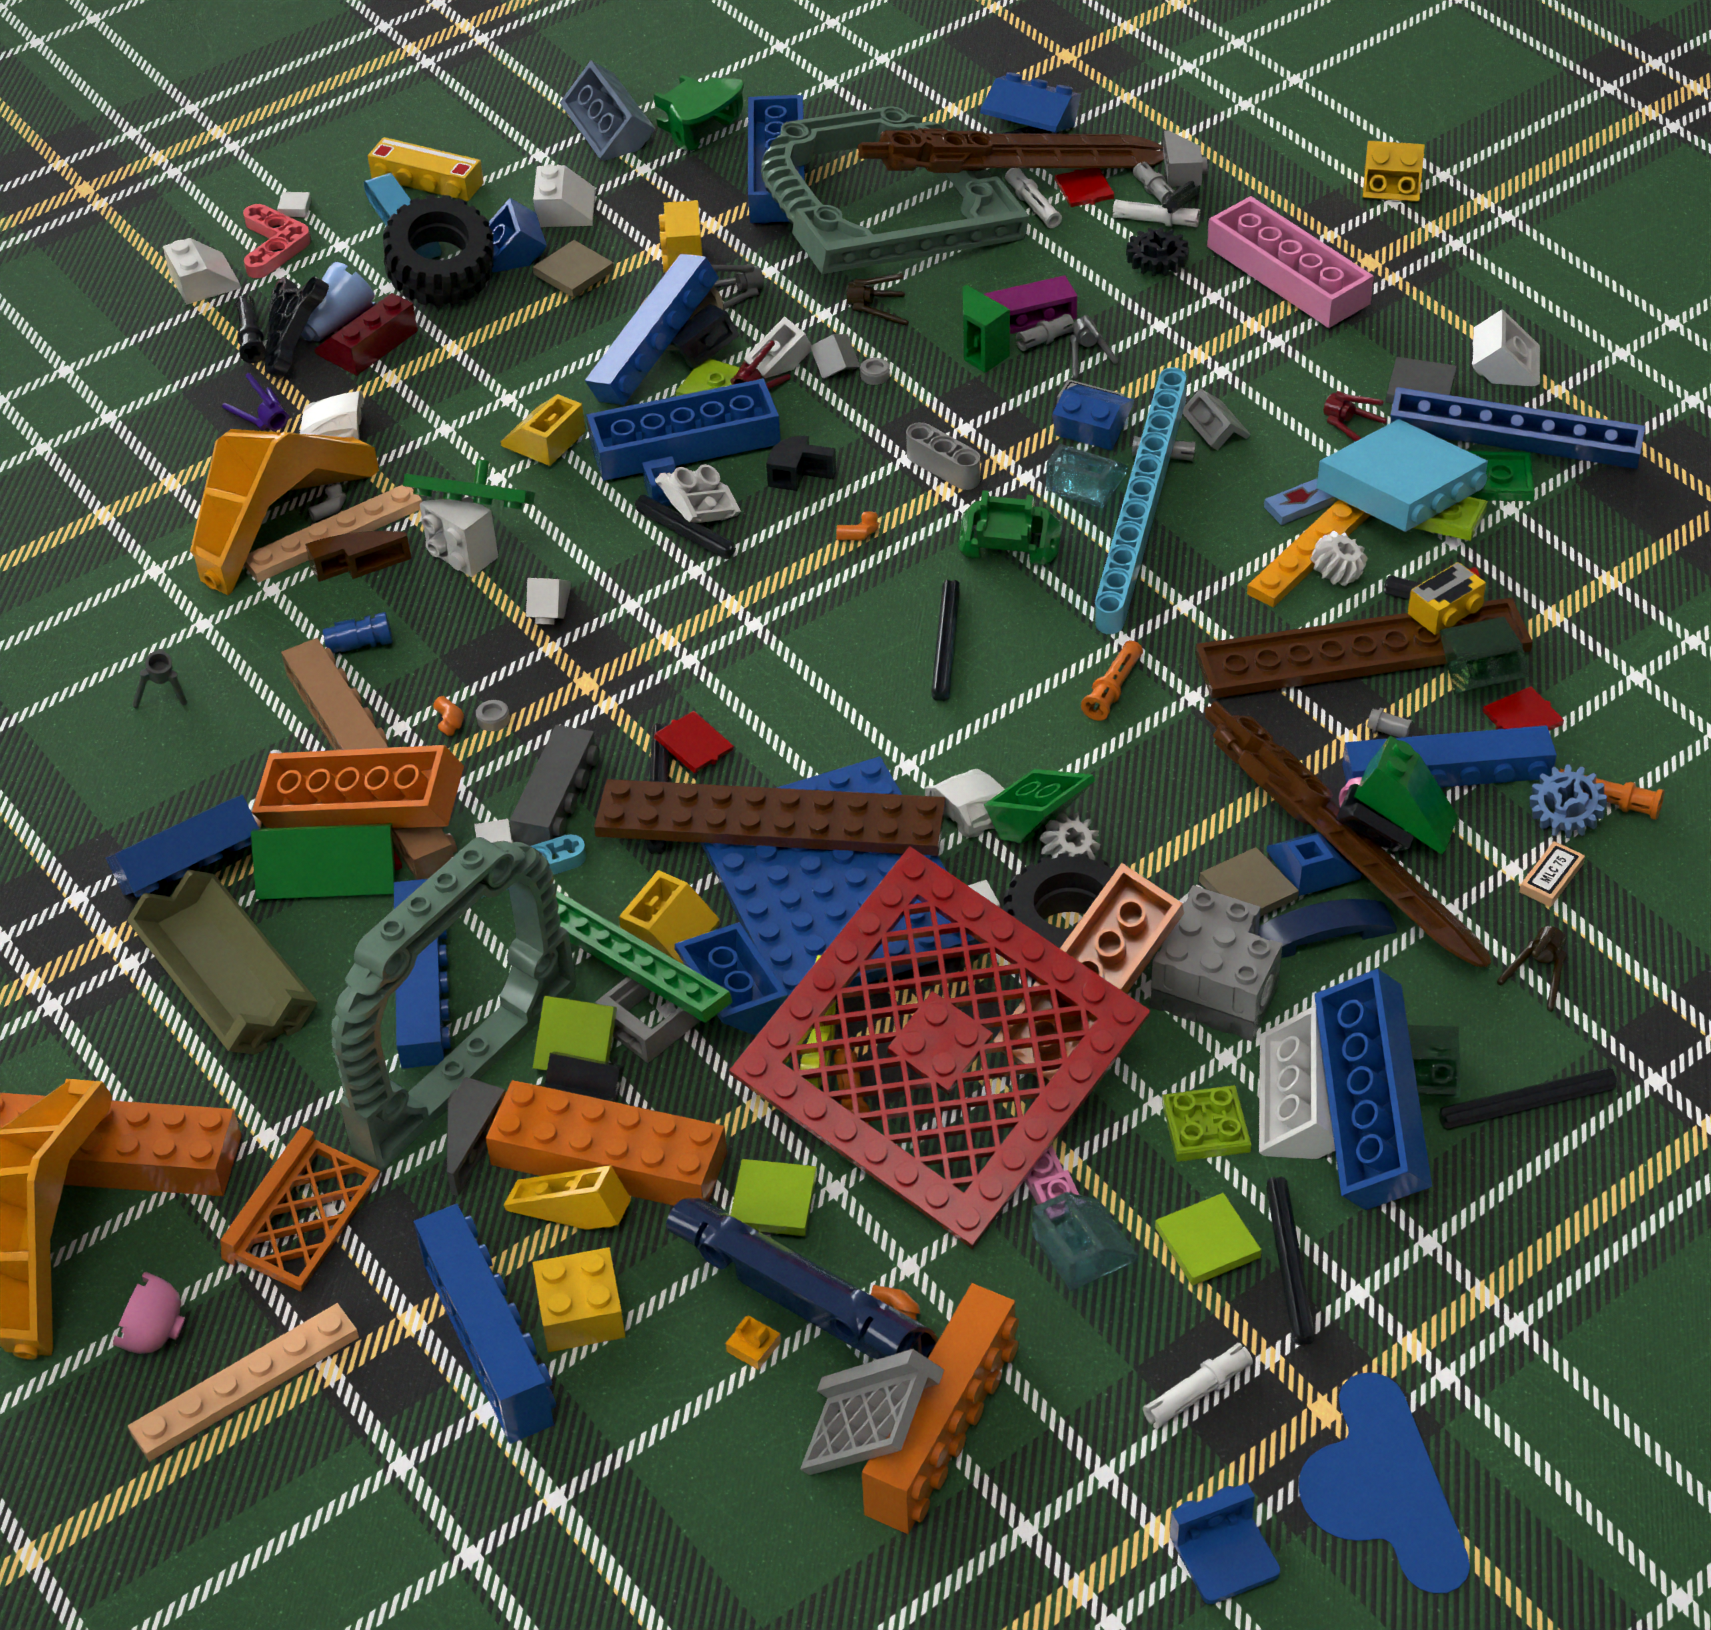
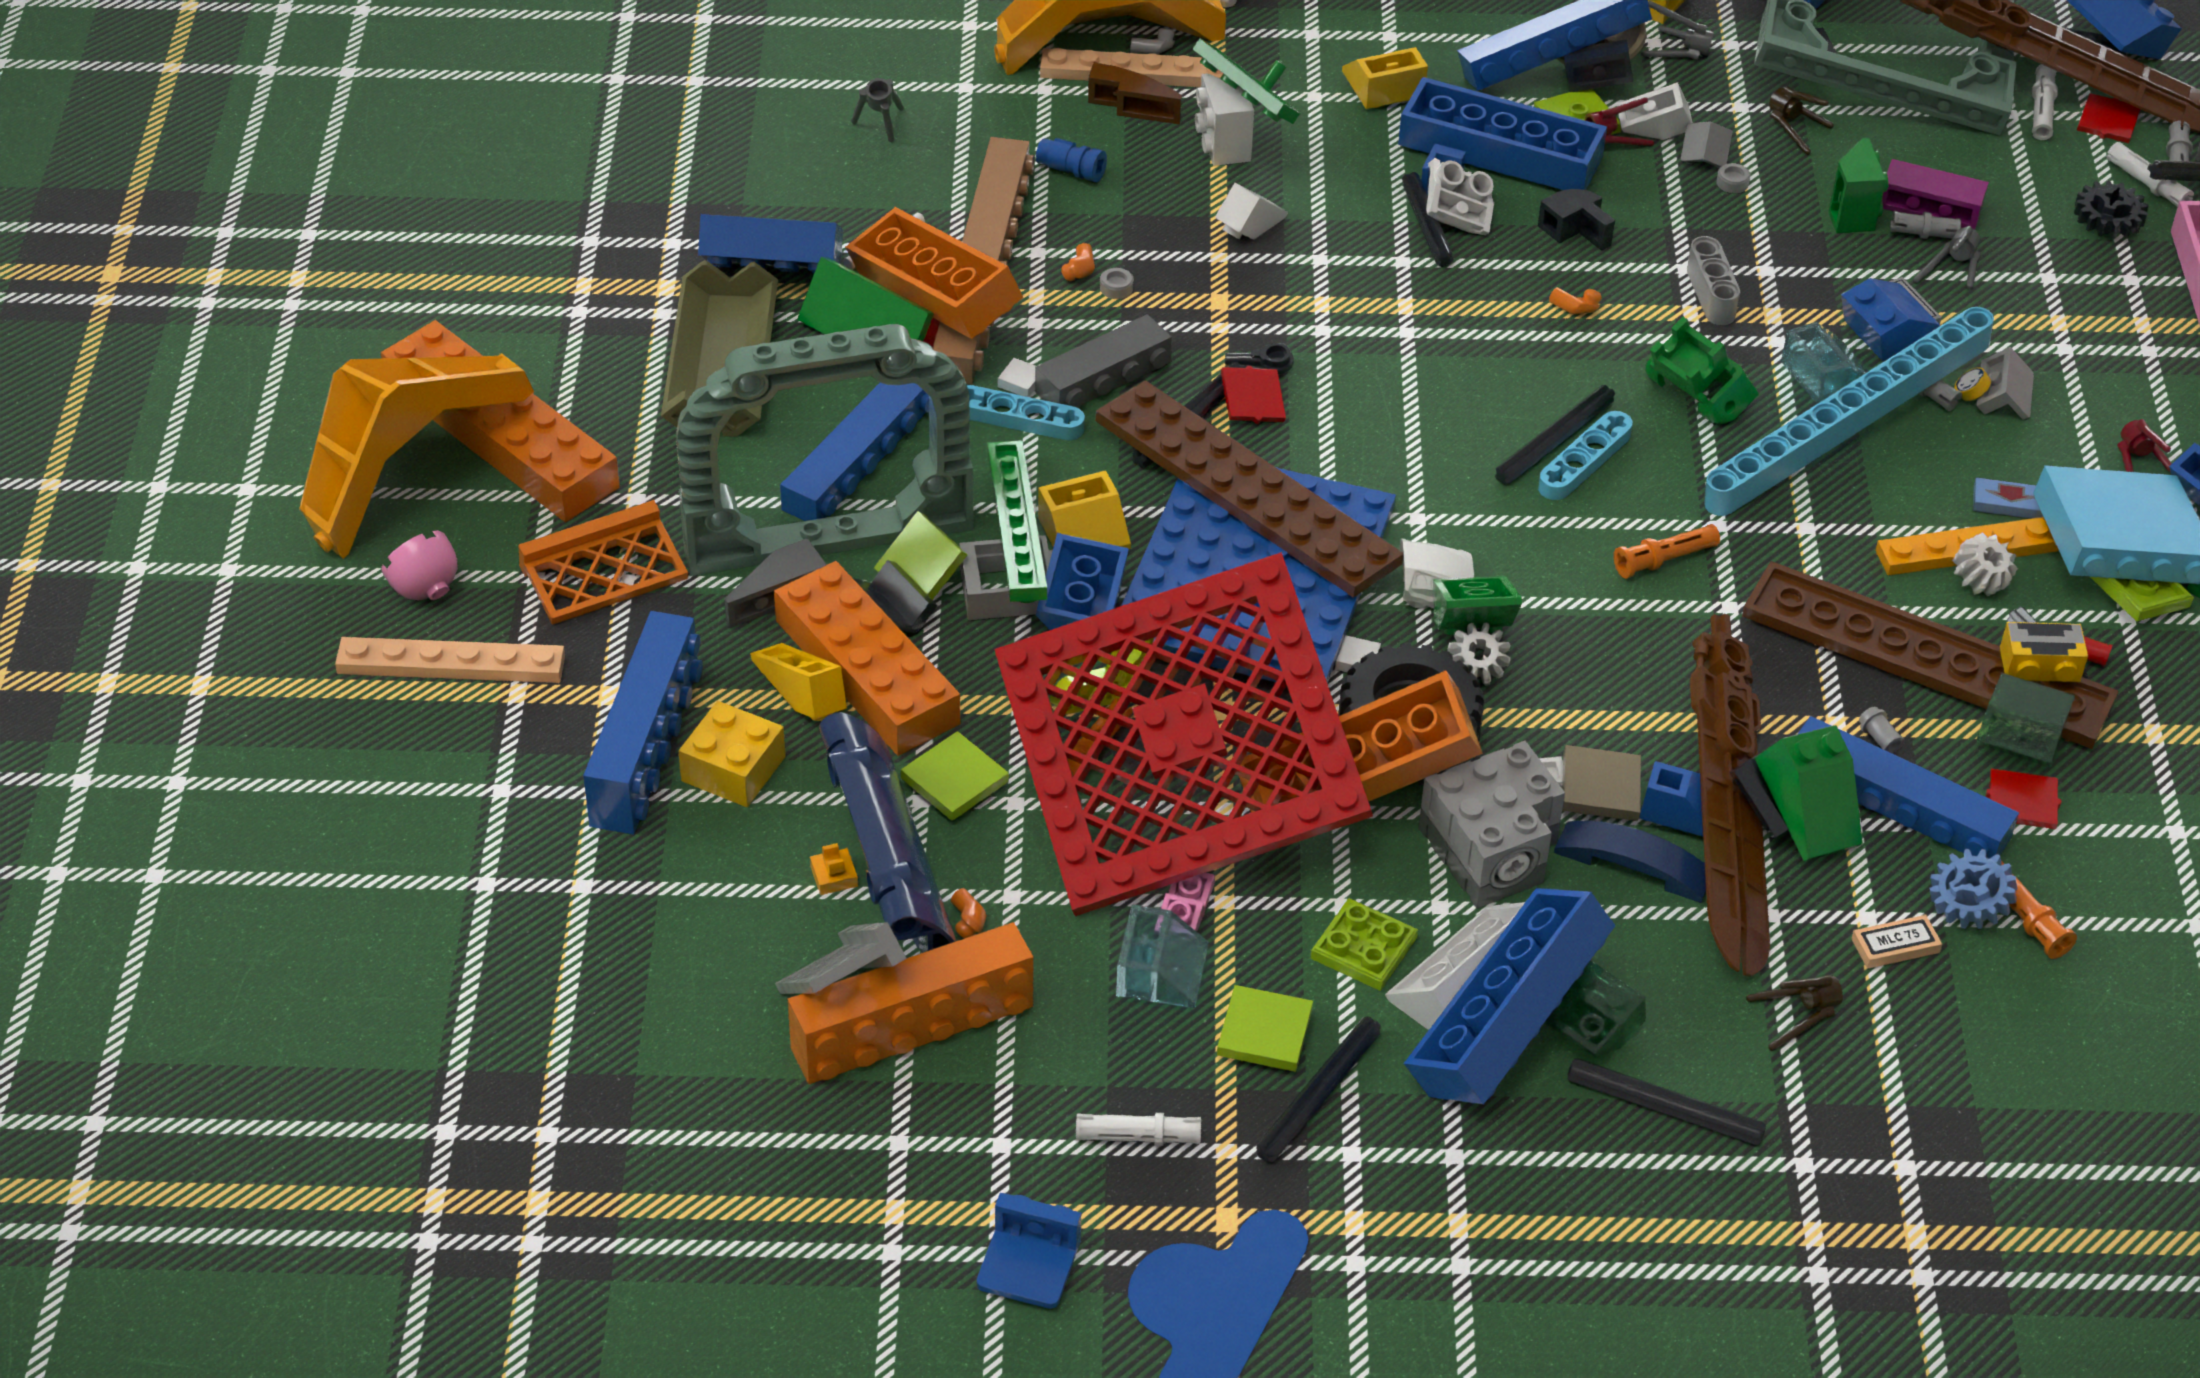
camera: 35 degrees right, 0 degrees up
(678, 704) = (1268, 357): none -> black plate
(983, 642) = (1591, 458): none -> medium azure beam
(1195, 429) = (1973, 383): none -> tile

